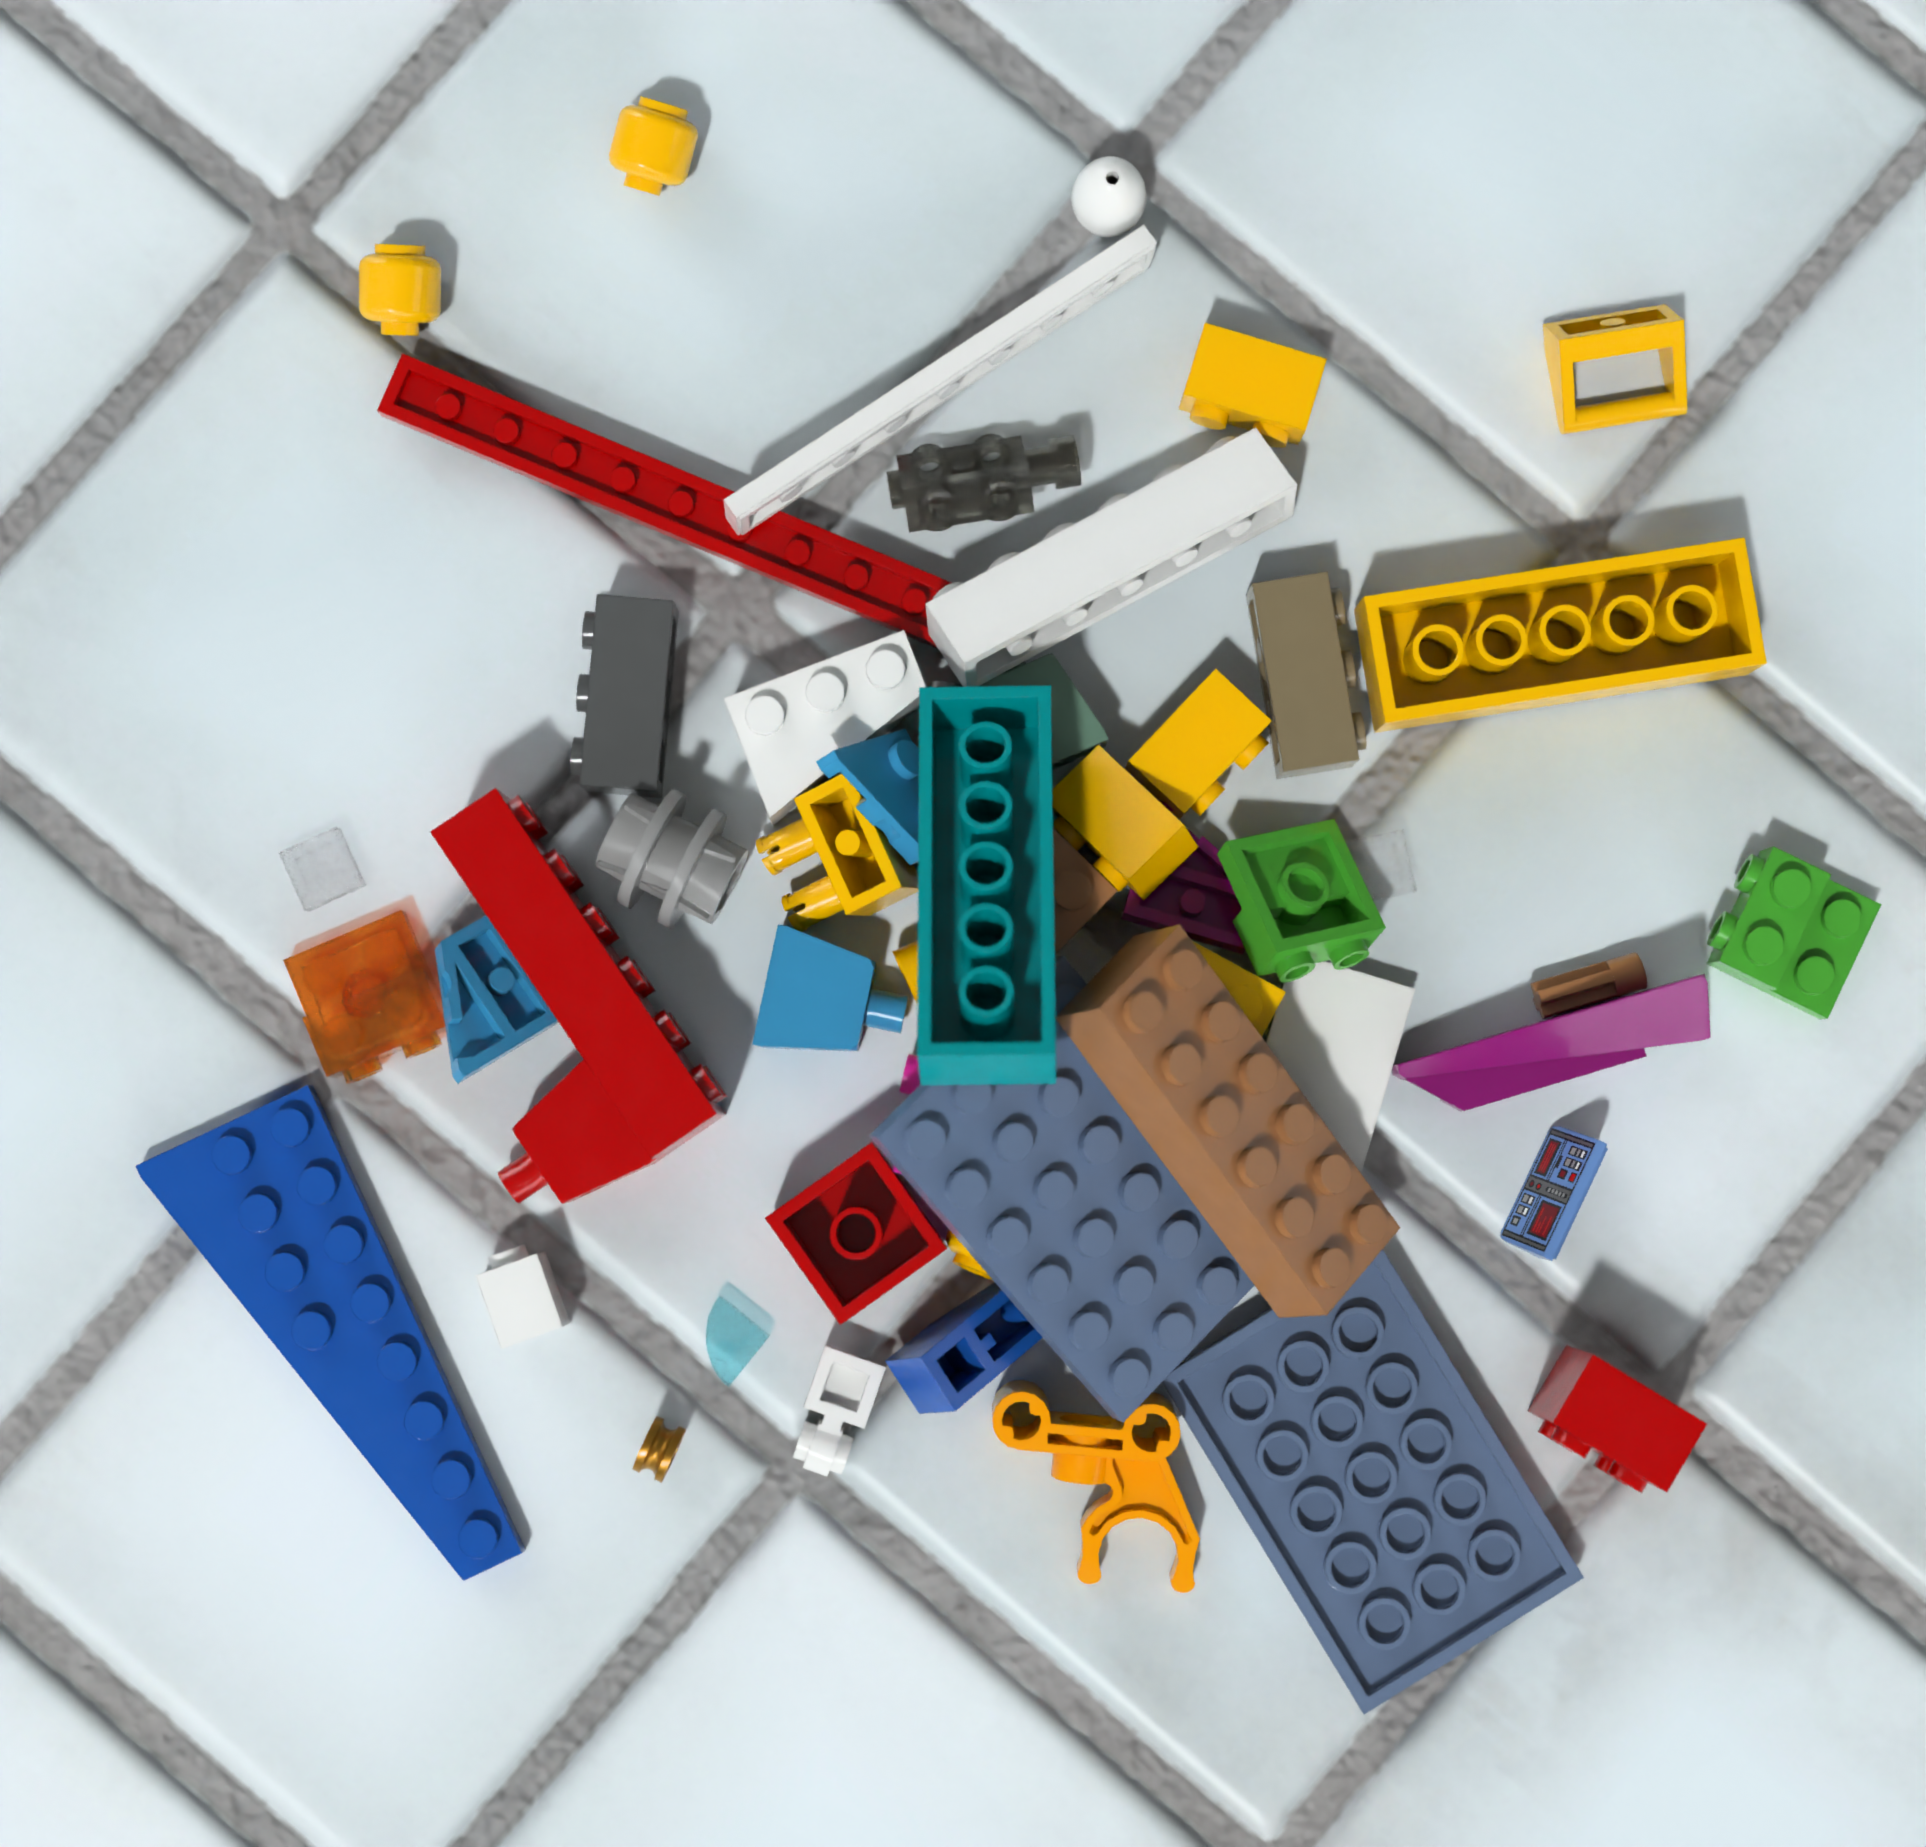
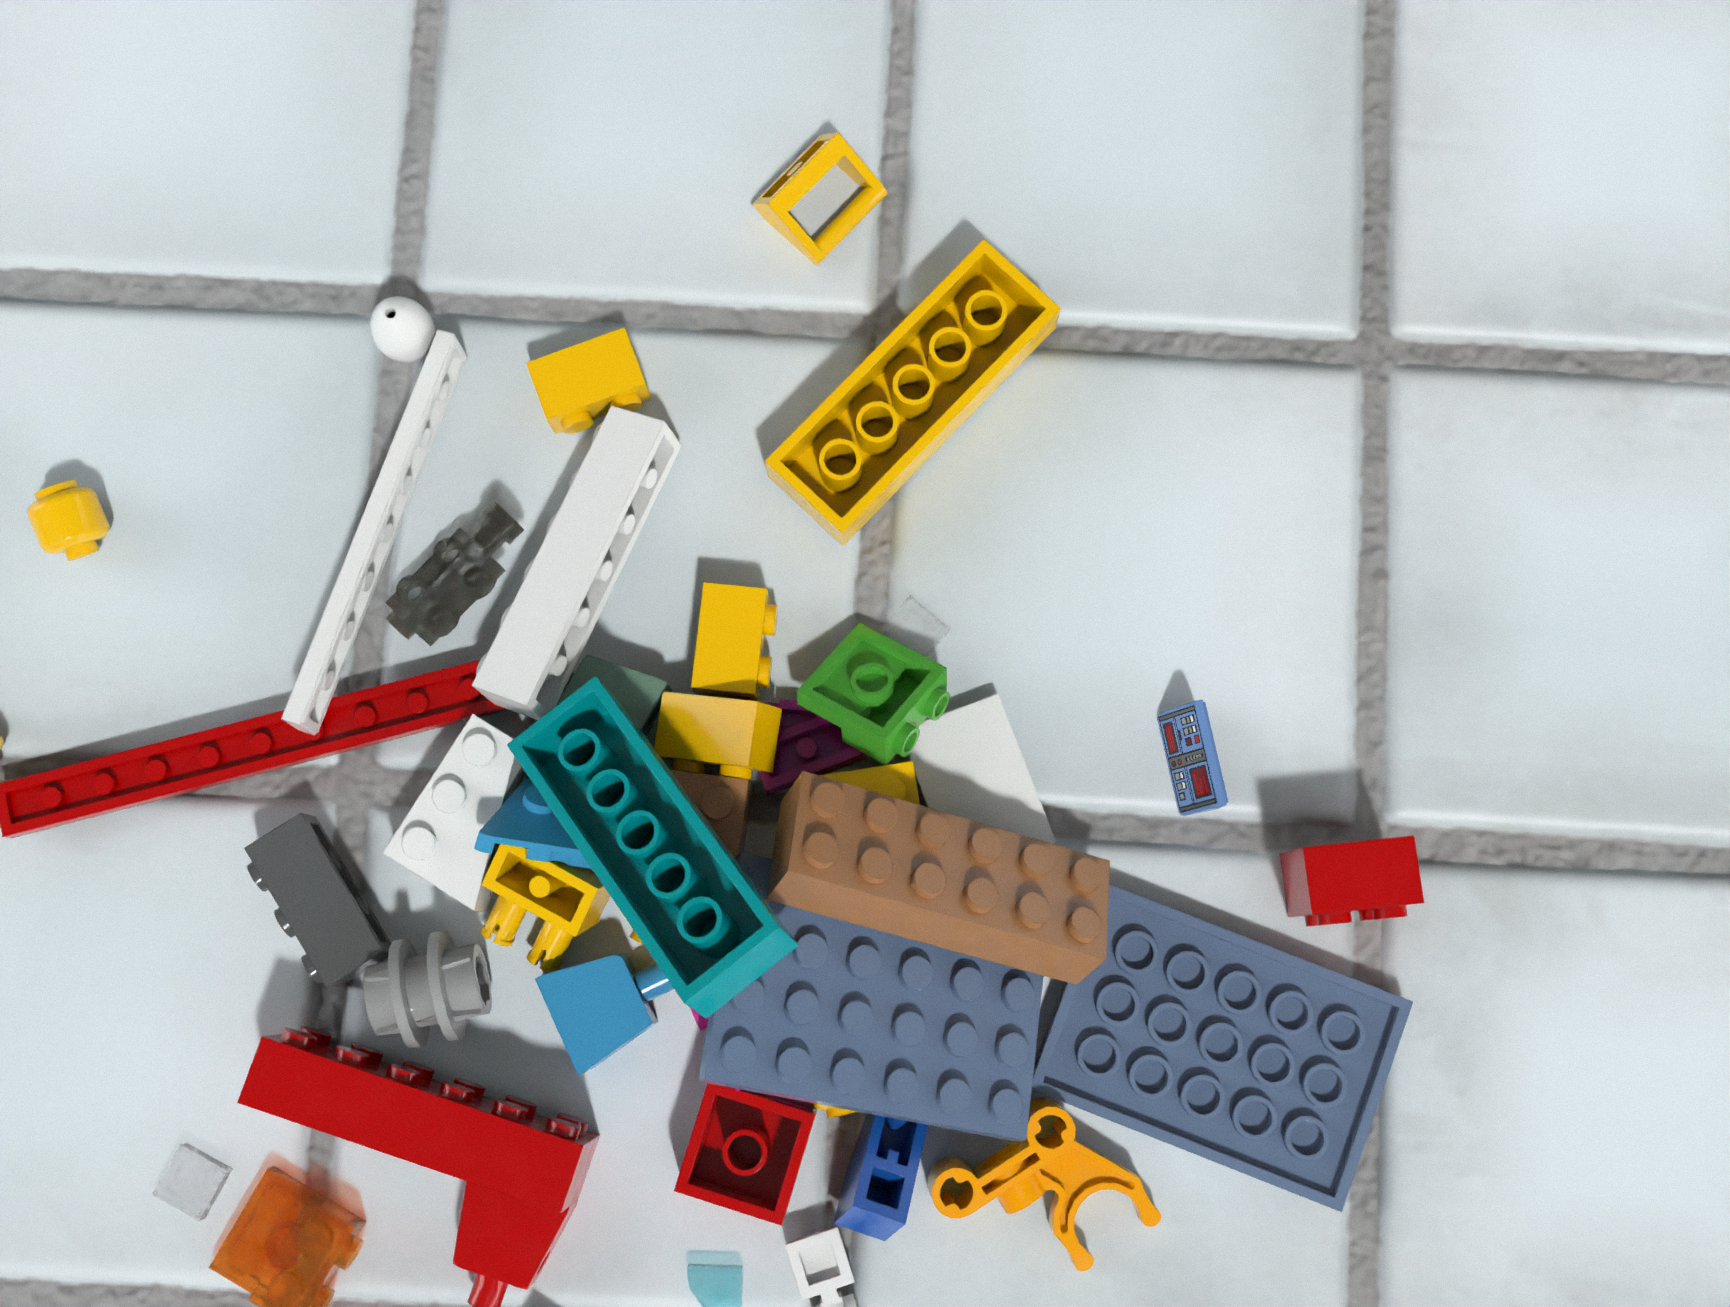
camera: 30 degrees left, 5 degrees down
(485, 999) = (370, 1190): dark azure wing -> none
(1305, 674) = (767, 542): dark tan brick -> none
(1563, 1046) = (1123, 657): magenta wedge -> none
(1589, 985) = (1109, 604): medium nougat piece -> none
(1791, 931) = (1212, 470): bright green plate -> none

